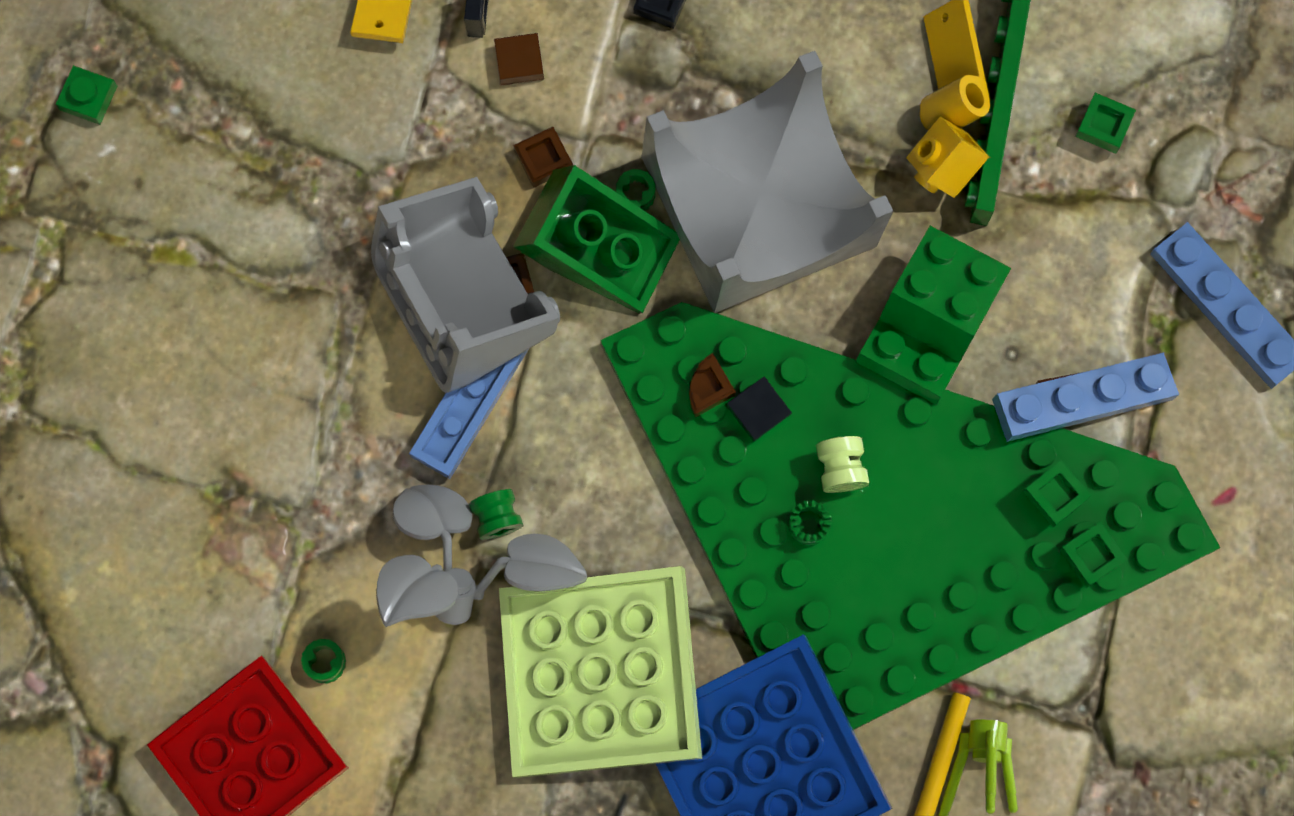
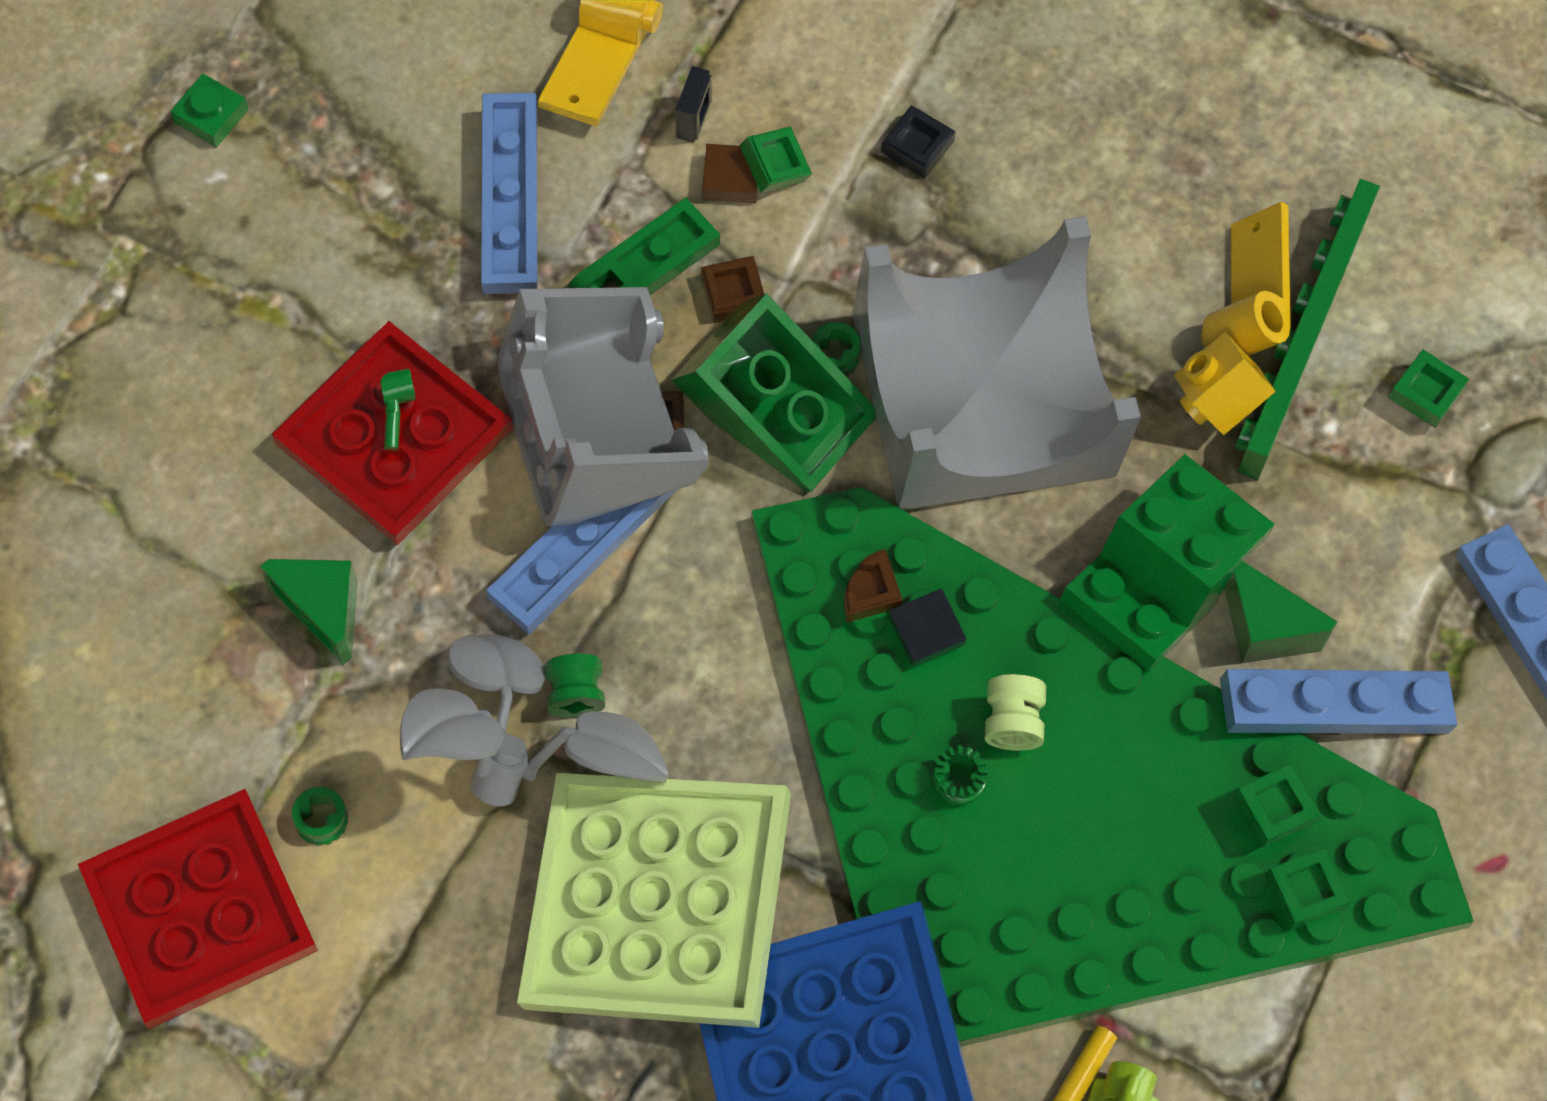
camera: 10 degrees right, 10 degrees down
(281, 486) = (320, 597): none -> green slope
(299, 304) = (396, 389): none -> green hand
(303, 337) = (441, 434): none -> red plate
(346, 115) = (509, 193): none -> medium blue plate
(471, 144) = (654, 252): none -> green plate
(552, 41) = (775, 159): none -> green tile
(1020, 340) = (1272, 619): none -> green slope

